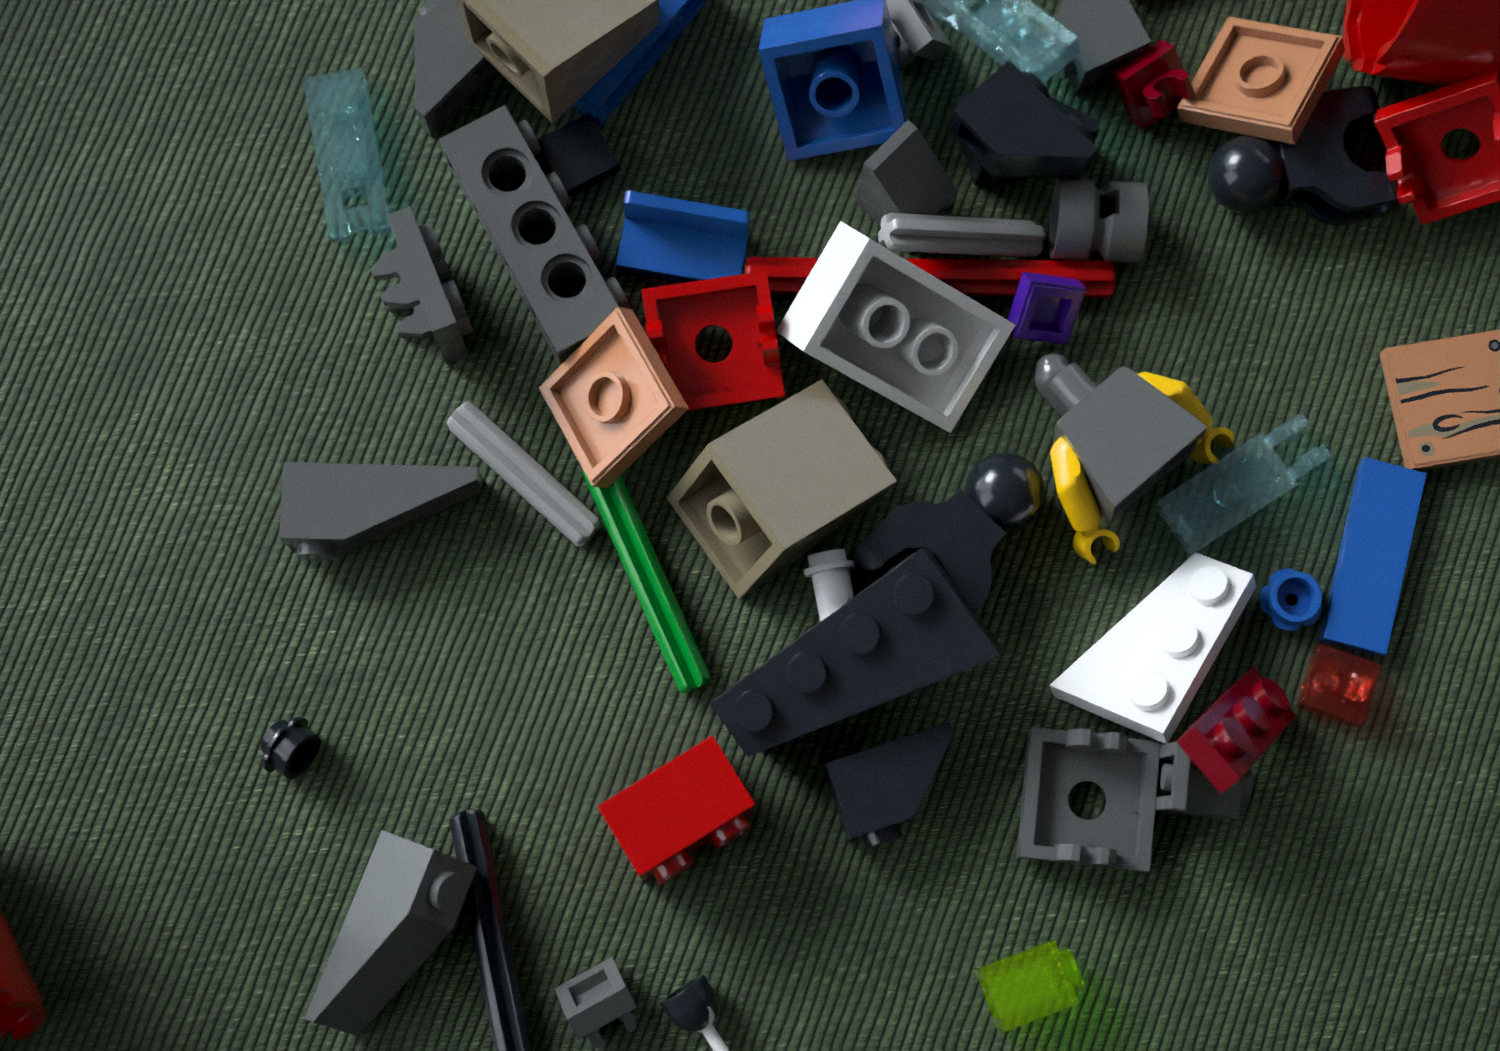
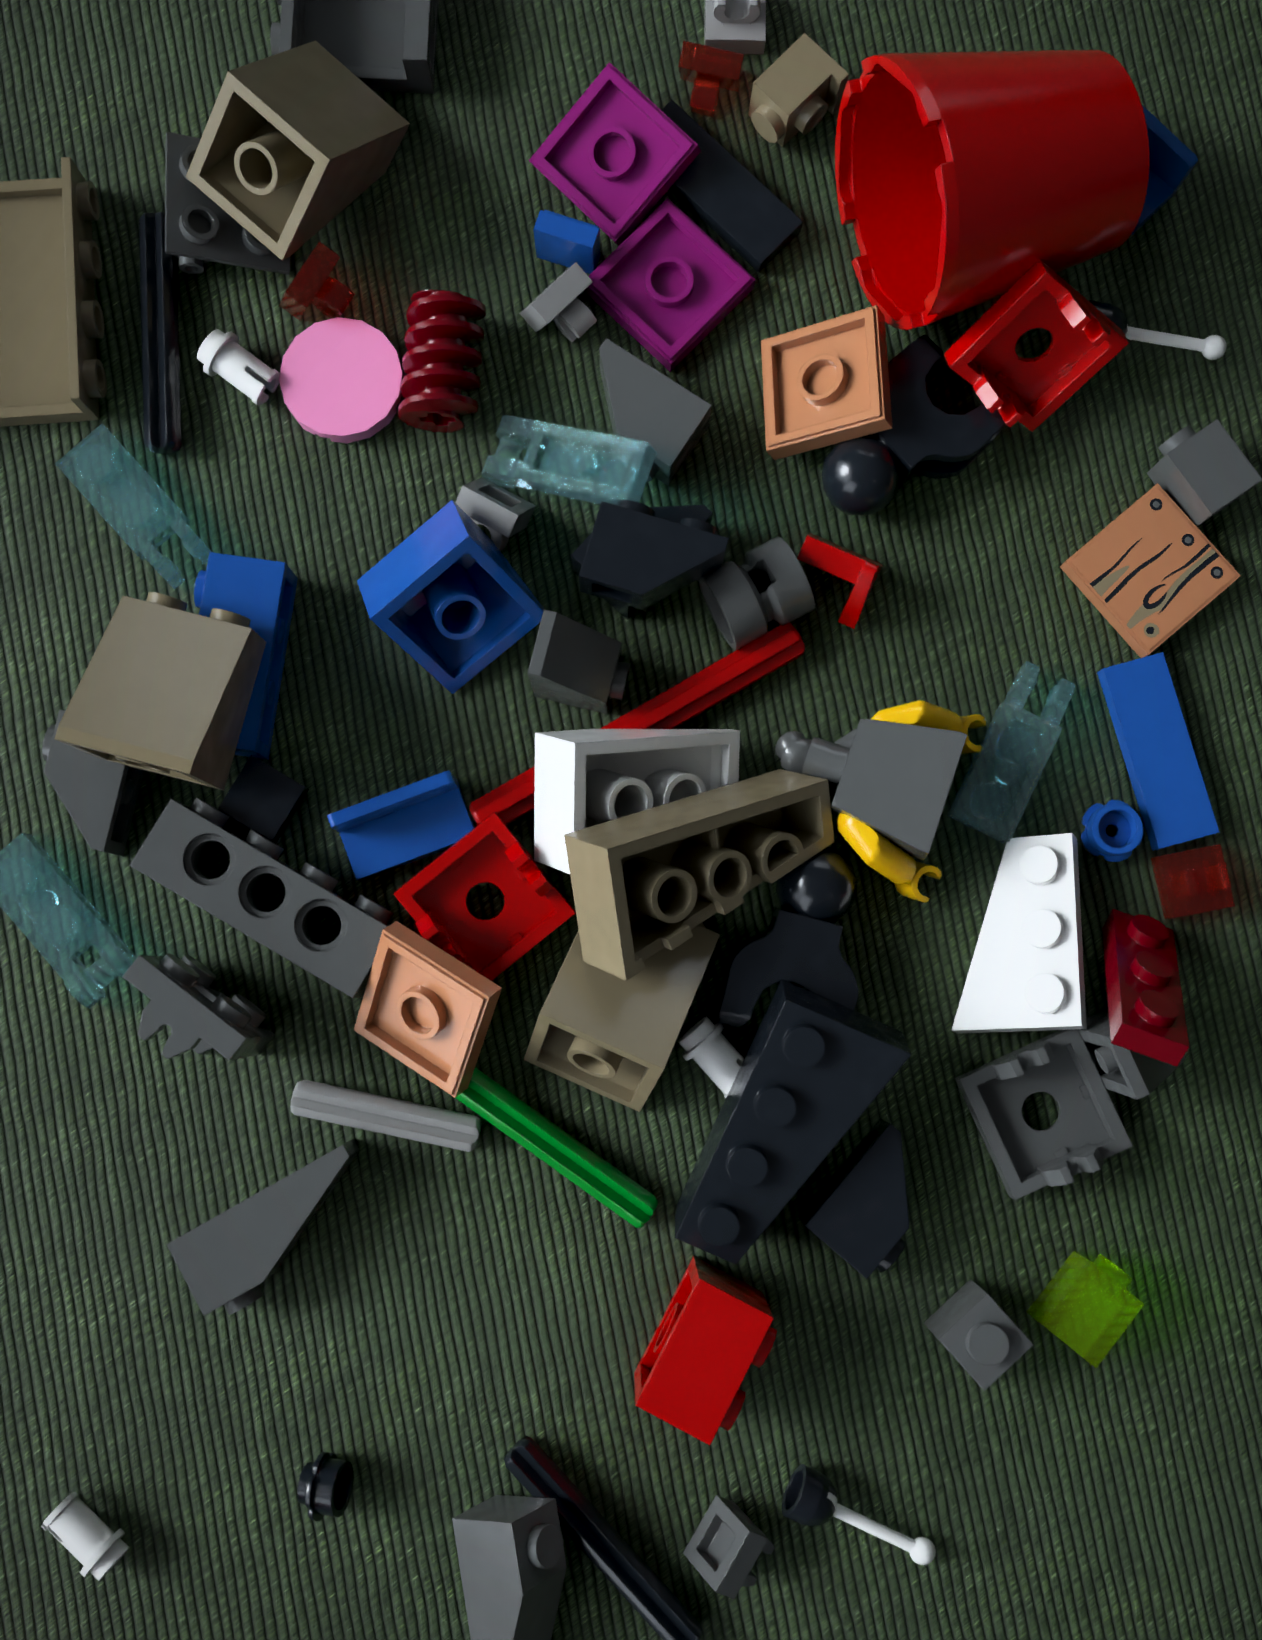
camera: 30 degrees left, 5 degrees up
(68, 669) = (86, 1536): none -> white pin
(890, 393) = (673, 866): none -> dark tan wedge
(919, 948) = (978, 1334): none -> dark grey brick
(961, 235) = (645, 679): light grey axle -> none
(1045, 308) = (756, 698): dark purple tile -> none
(1153, 84) = (733, 440): dark red tile -> none
(1190, 241) = (845, 565): none -> red tile

